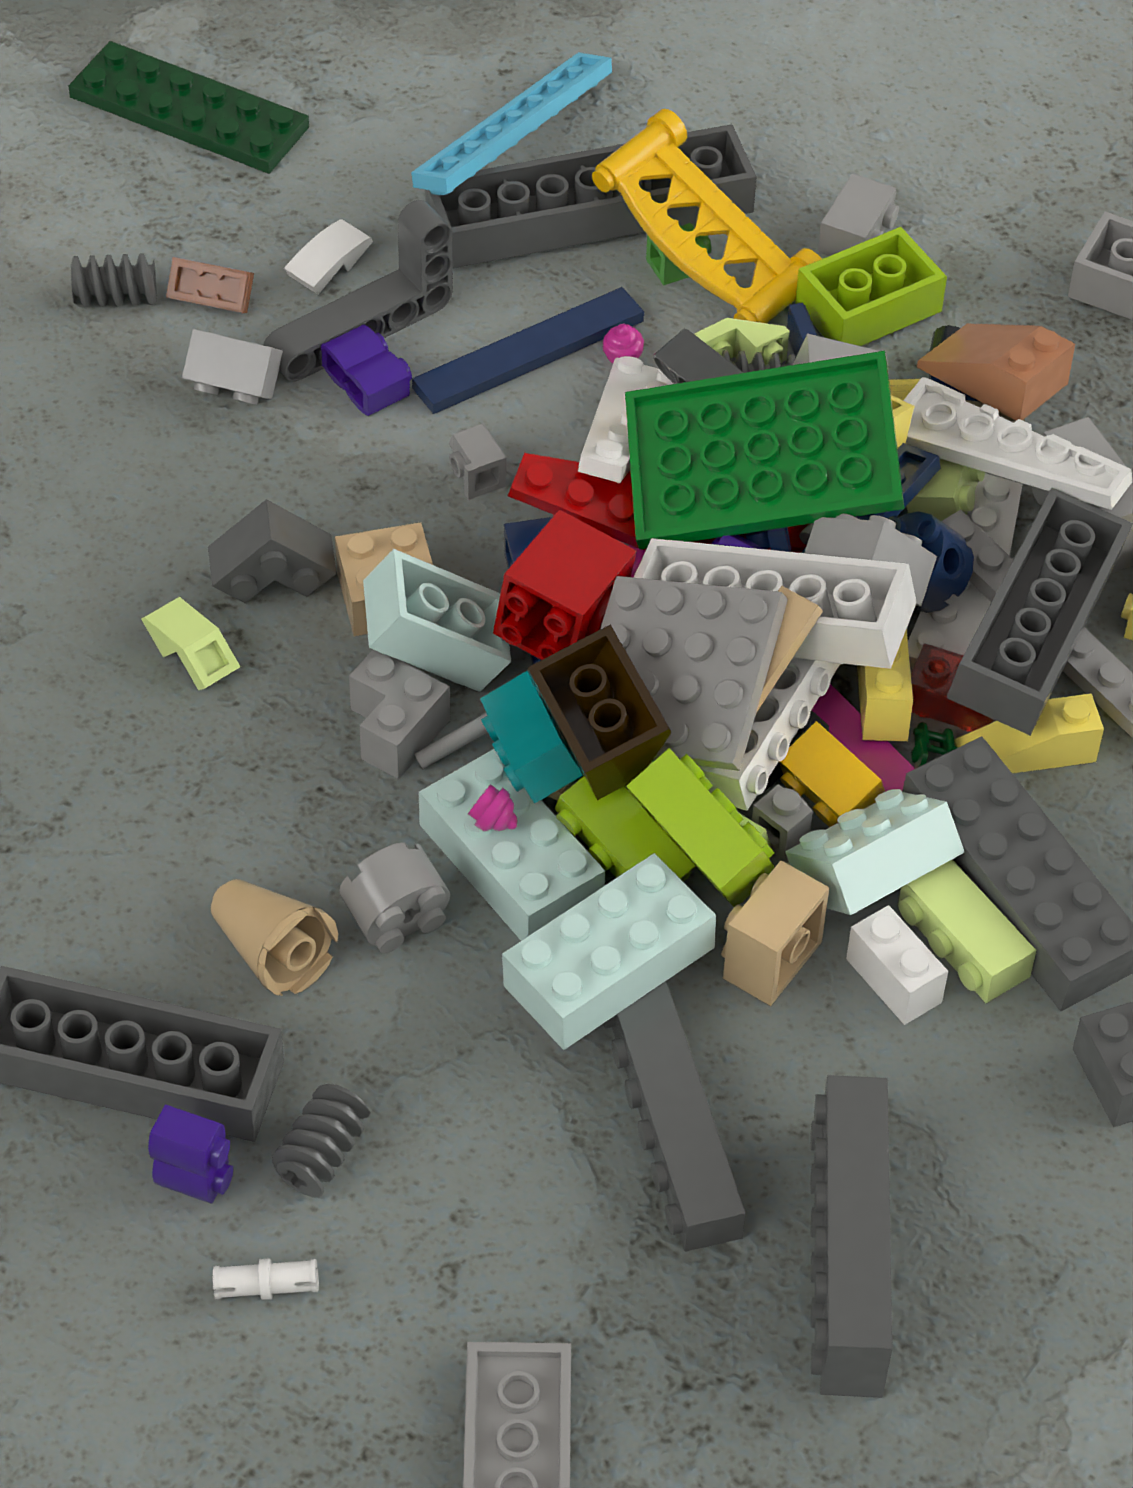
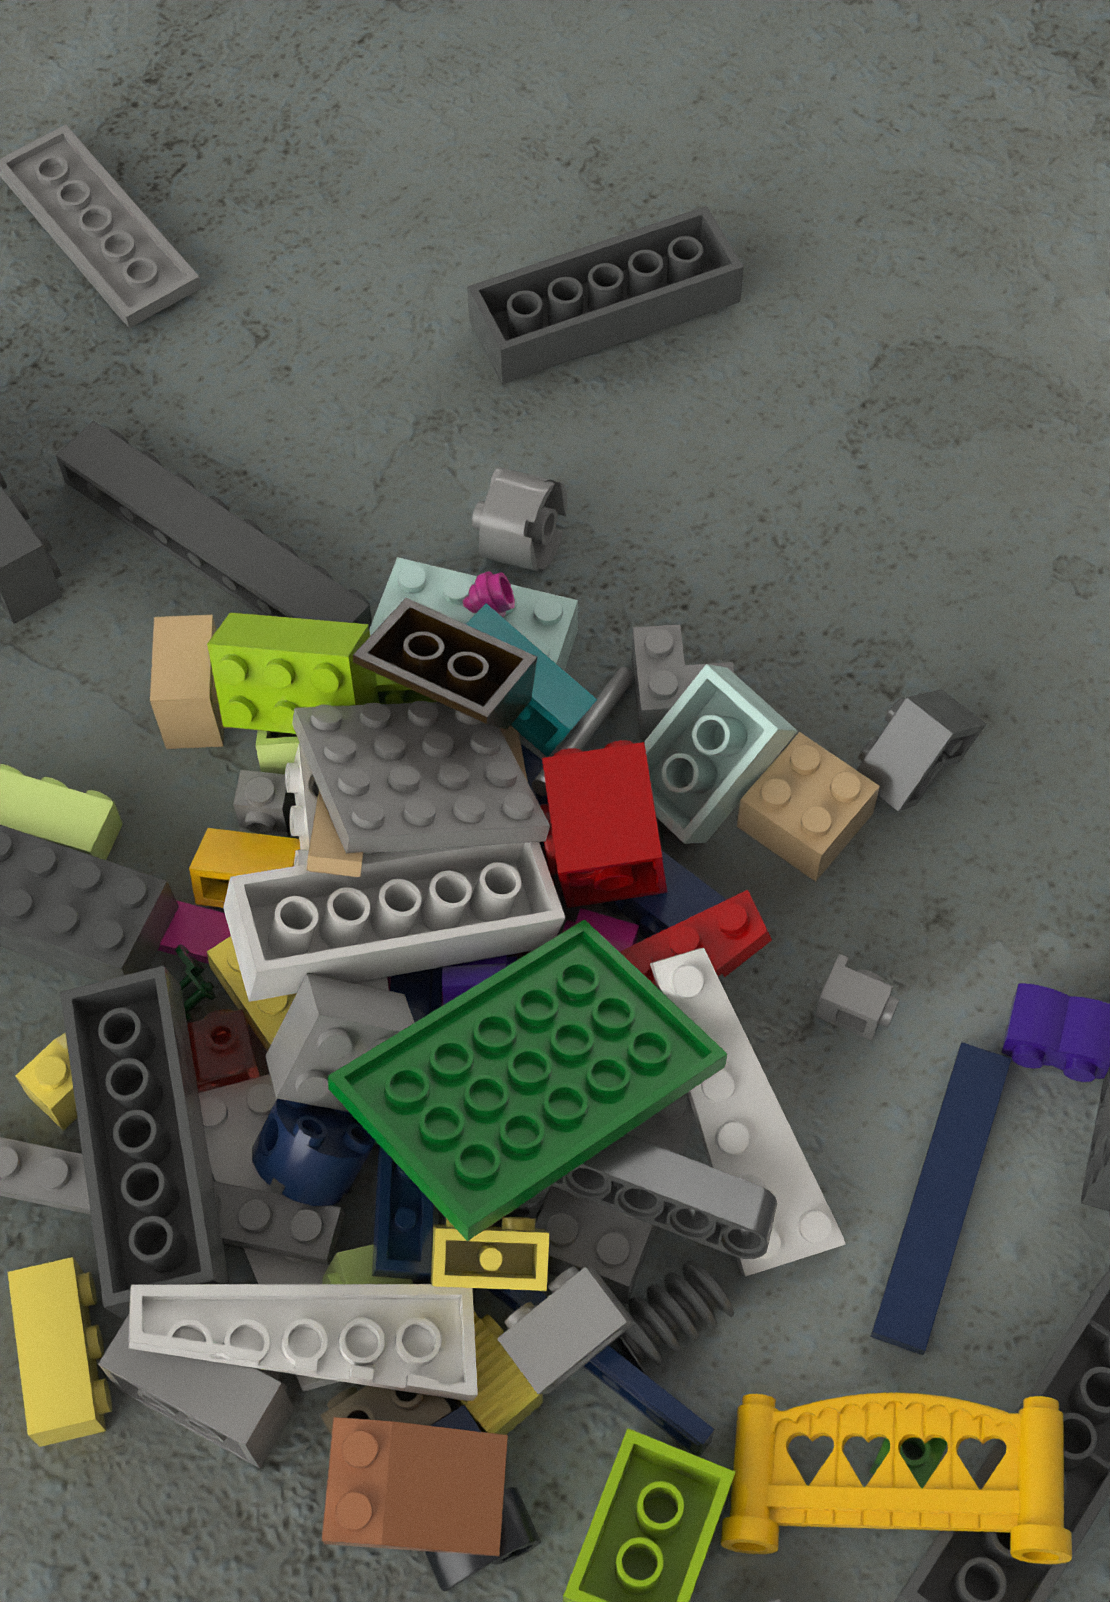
camera: 145 degrees right, 10 degrees up
(190, 1154) = (487, 245): dark purple brick -> none
(194, 638) = (918, 634): yellowish green slope -> none
(265, 1279) = (374, 239): white pin -> none
(275, 935) = (595, 439): tan cone -> none
(319, 1138) = (415, 328): dark grey piece -> none
(609, 950) = (302, 540): light aqua brick -> none
(623, 341) = (854, 1269): dark pink plate -> none
(746, 336) = (721, 1364): yellowish green slope -> none
(878, 848) = (154, 800): light aqua brick -> none
(896, 964) = (75, 740): white brick -> none

